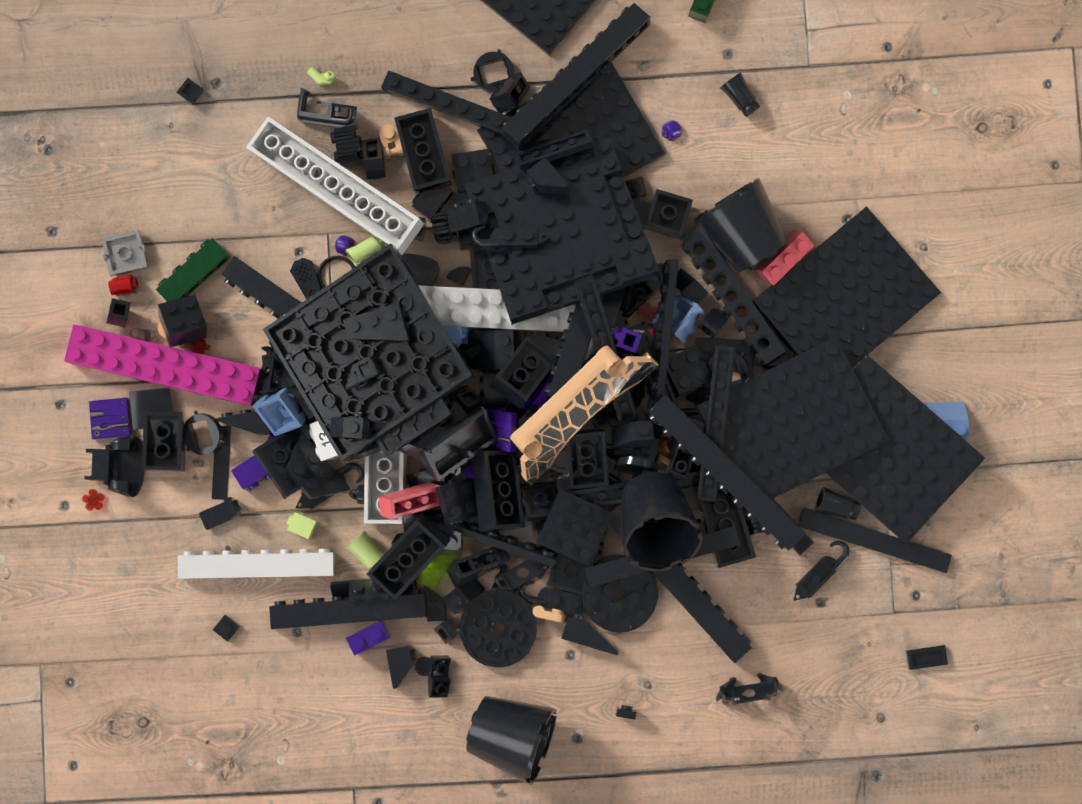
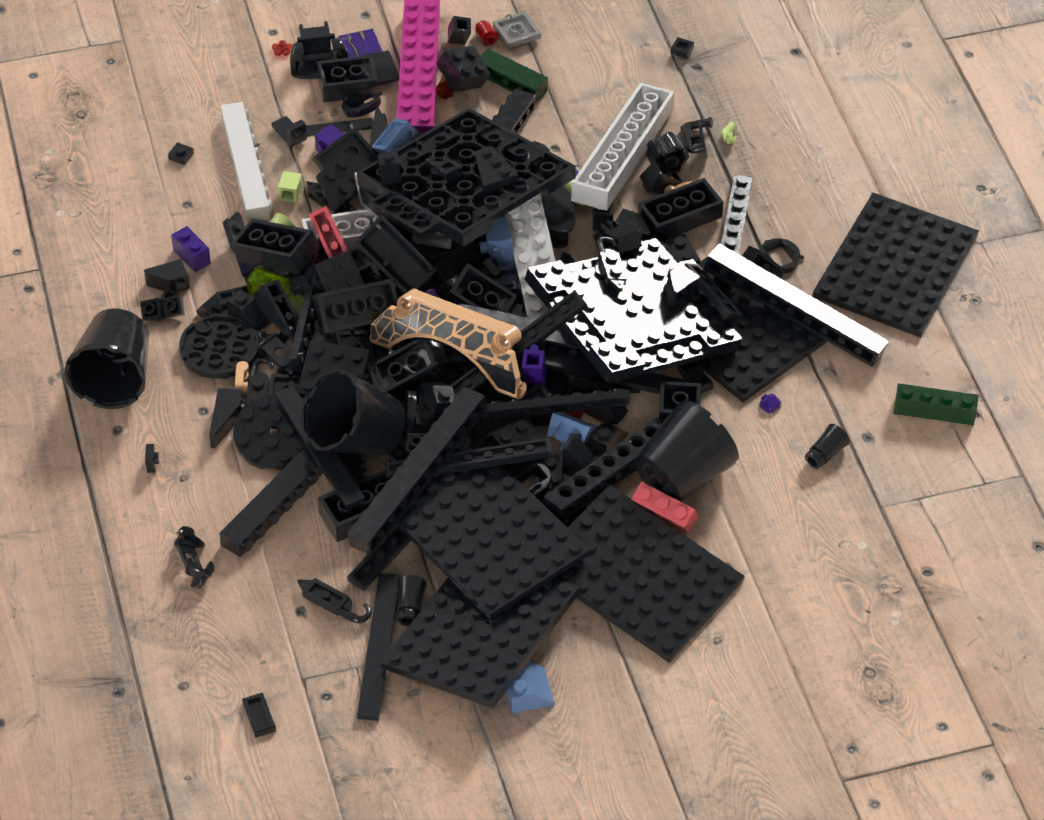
camera: 75 degrees right, 35 degrees down
(342, 611) = (210, 219): black brick -> none

